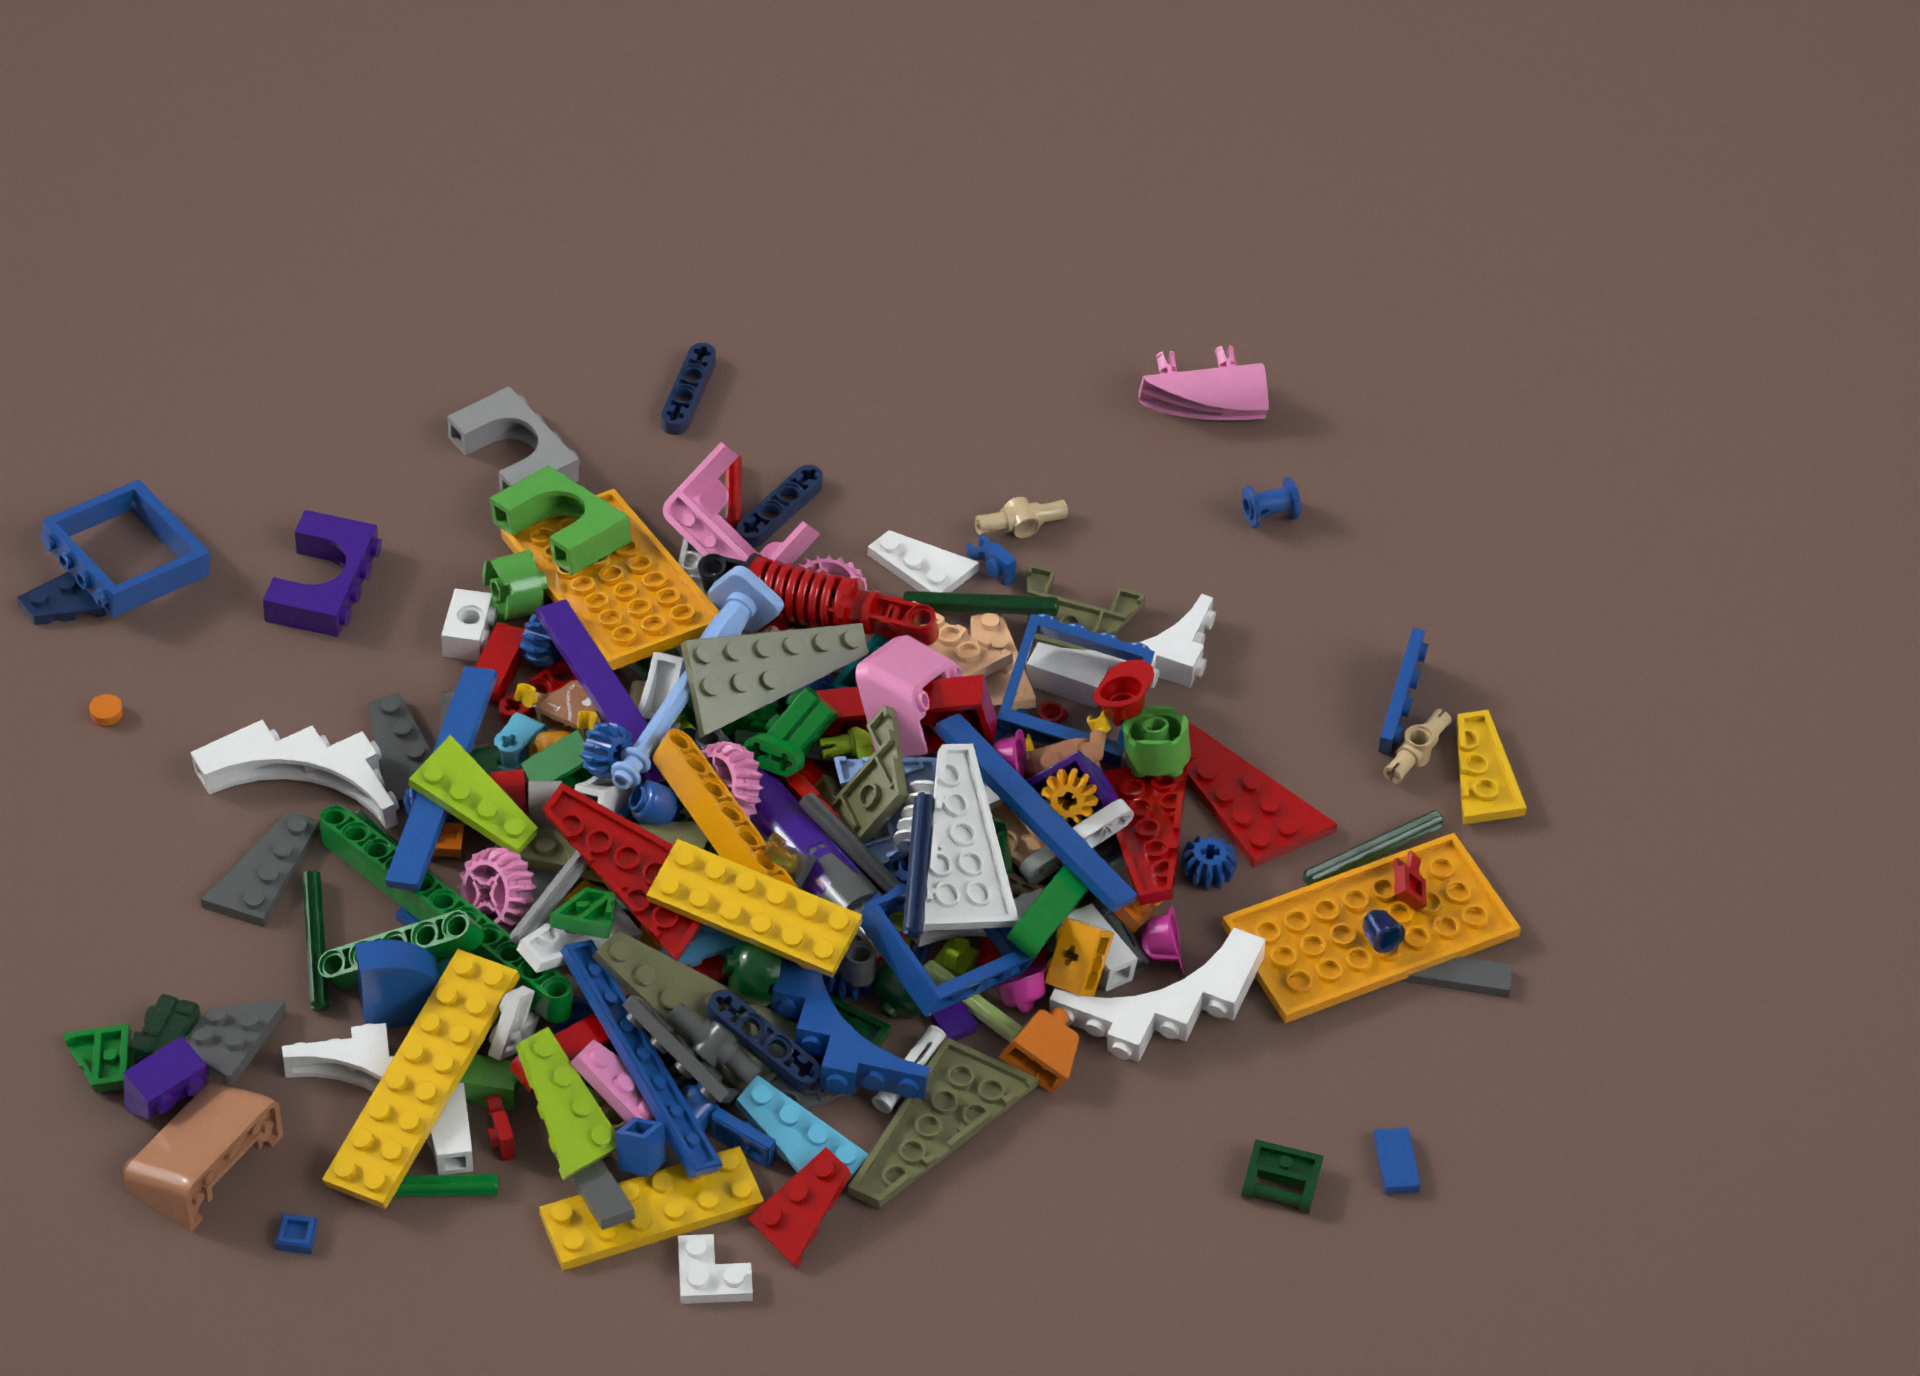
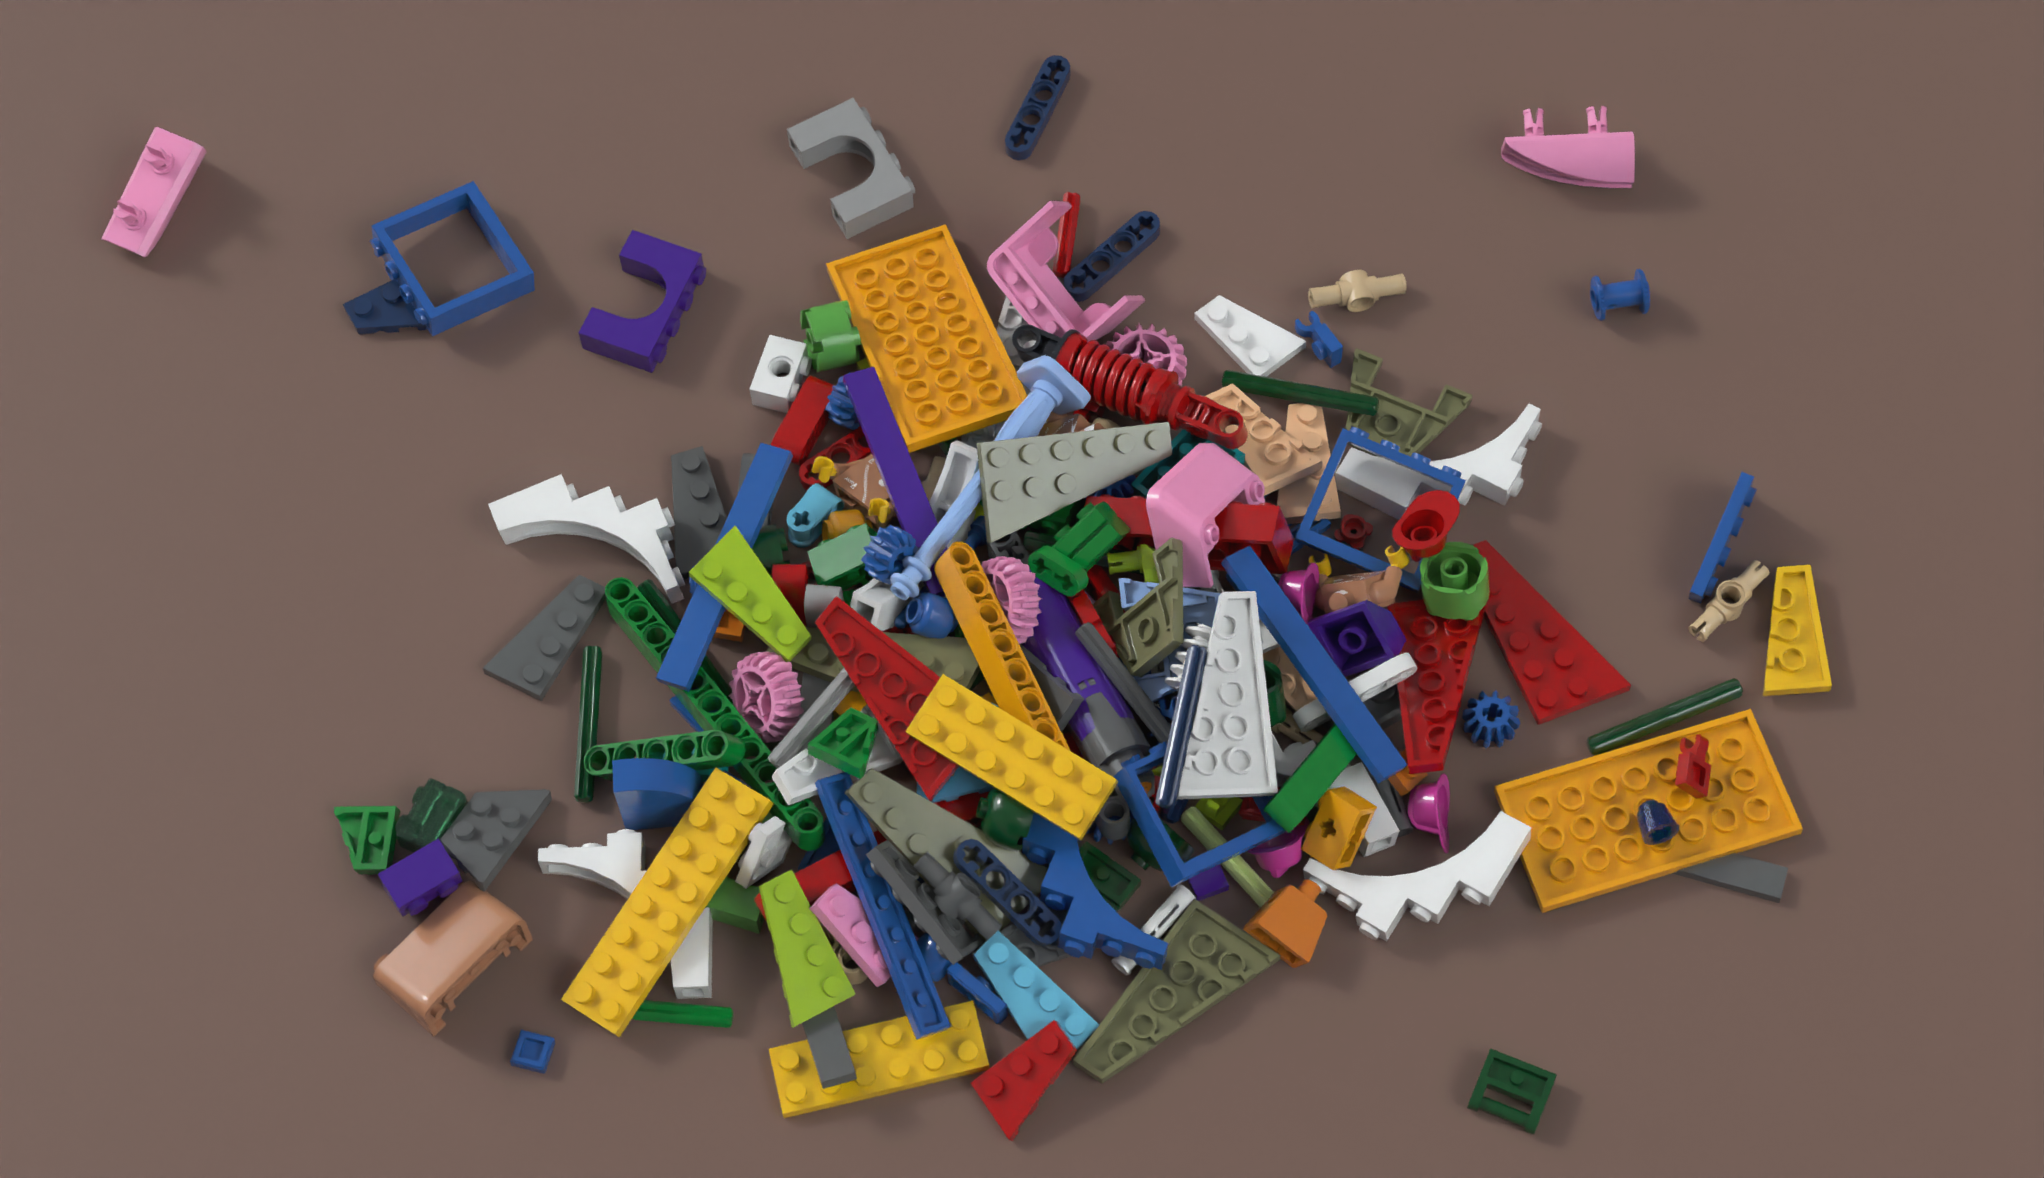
camera: 15 degrees right, 15 degrees up
(106, 710) = (415, 440): orange tile -> none
(500, 1134) = (740, 965): red plate -> none
(552, 494) = (879, 231): bright green arch -> none
(641, 1146) = (872, 999): blue brick -> none
(710, 1282) = (921, 1147): white plate -> none
(779, 854) = (1045, 691): clear yellow tile -> none
(1081, 792) = (1352, 646): light orange gear -> none
(1396, 1161) = (1632, 1084): blue tile -> none

